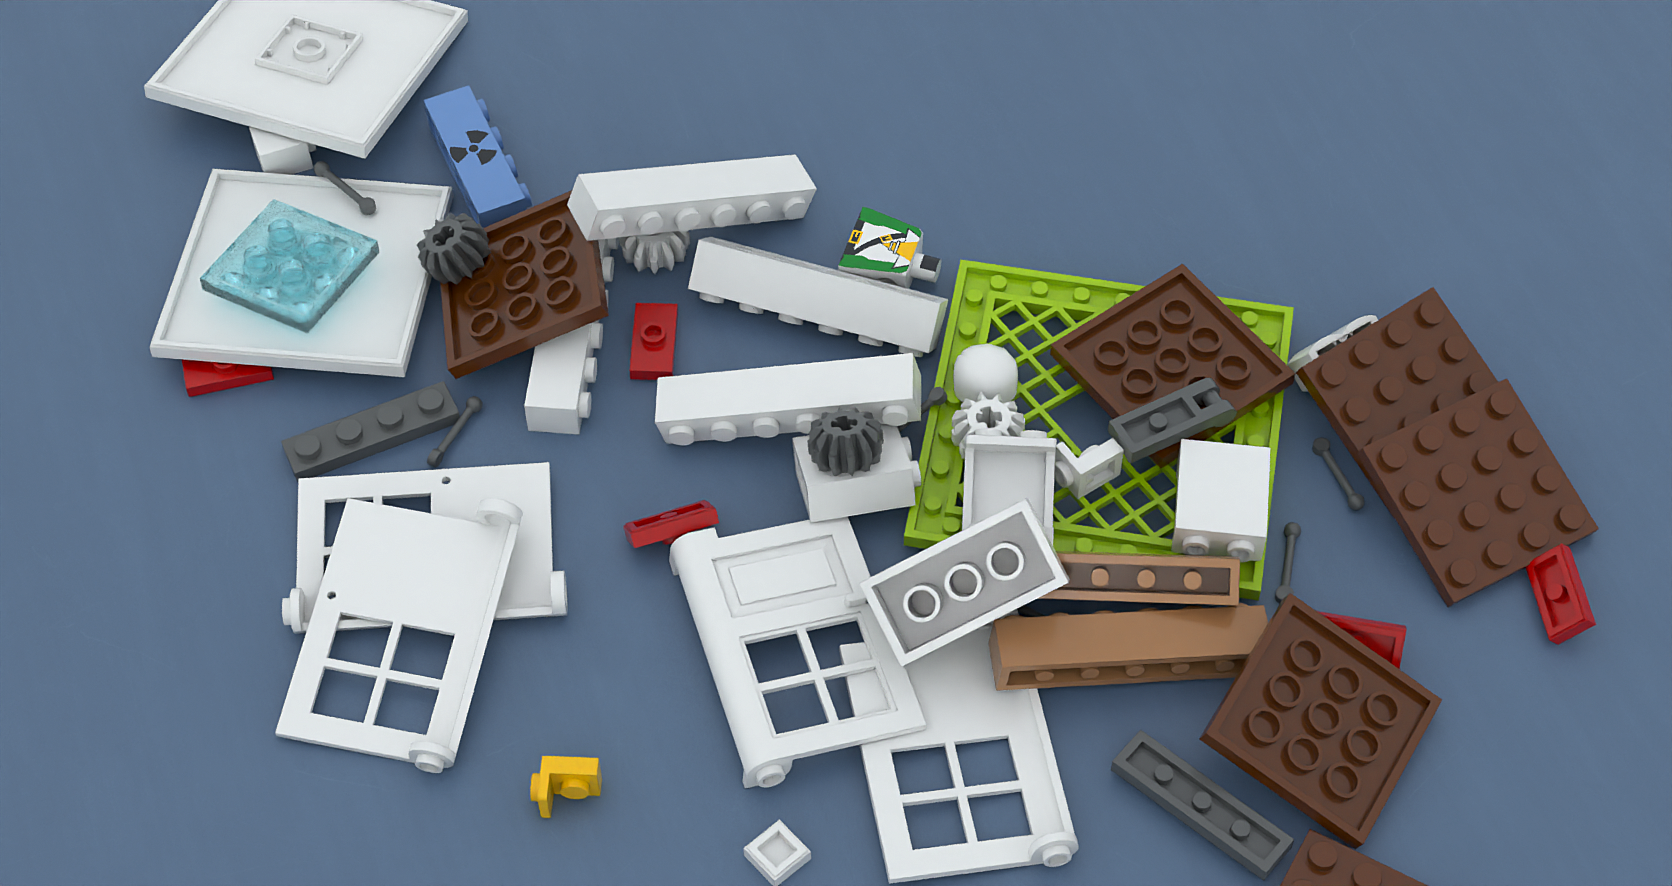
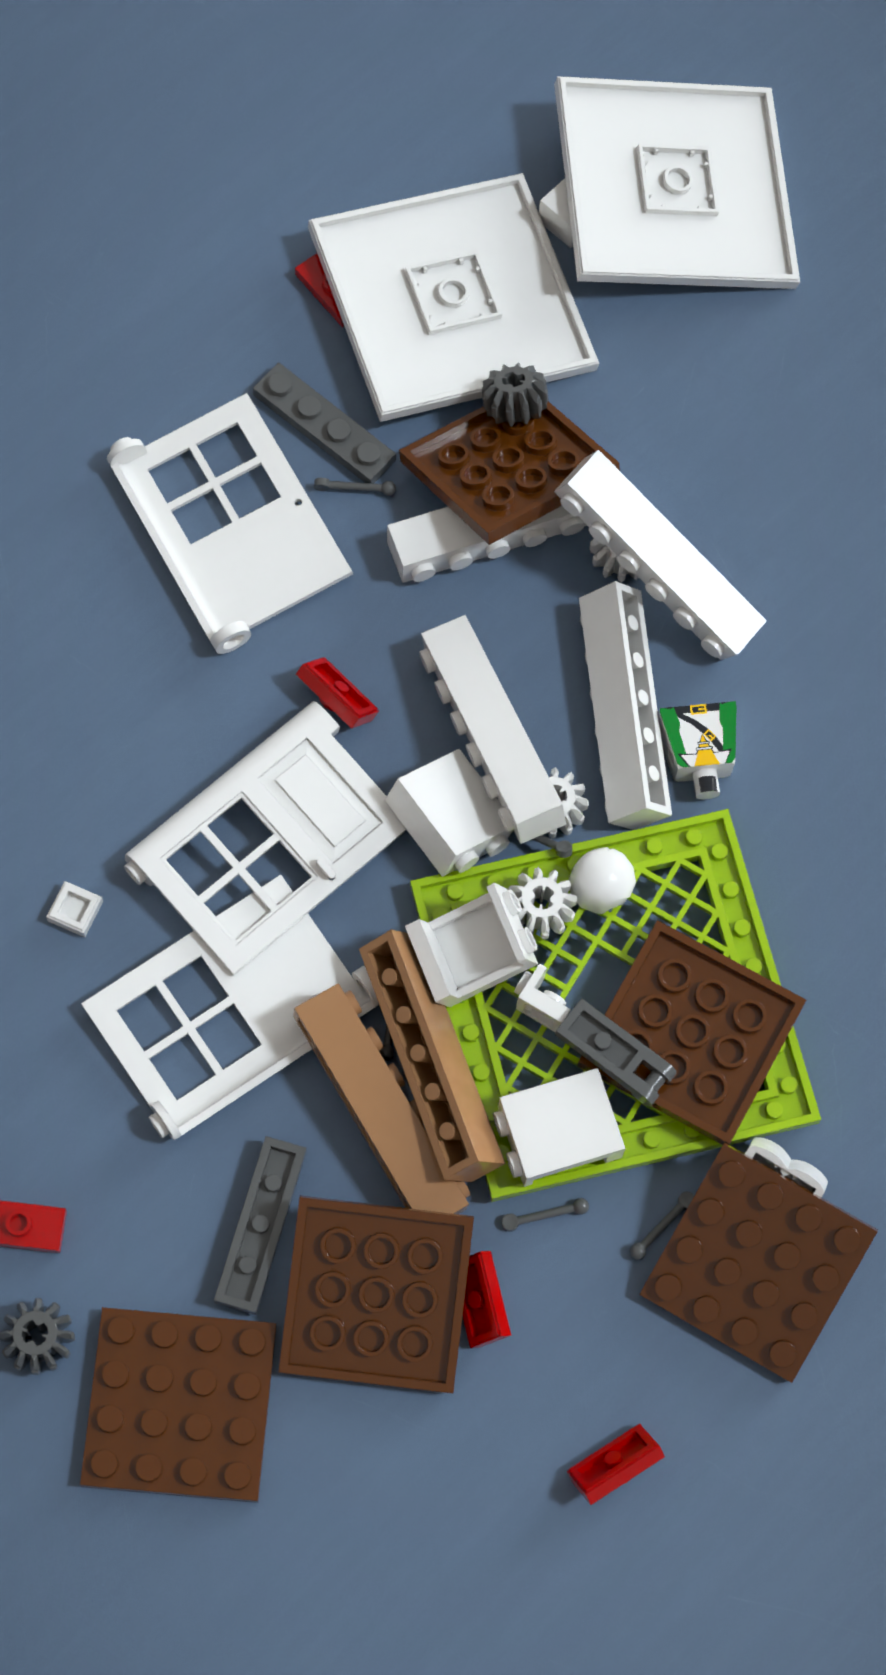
camera: 60 degrees right, 15 degrees up
(290, 265) = (436, 280): clear light blue plate -> none
(366, 205) = (541, 307): dark grey hinge -> none
(415, 575) = (193, 523): white door -> none
(475, 156) = (633, 369): medium blue brick -> none
(565, 776) = (59, 712): yellow bracket -> none
(653, 341) = (521, 597): red plate -> none
(845, 441) = (453, 789): dark grey gear -> none
(964, 582) = (353, 943): white brick -> none
(1476, 491) = (687, 1353): reddish brown plate -> none

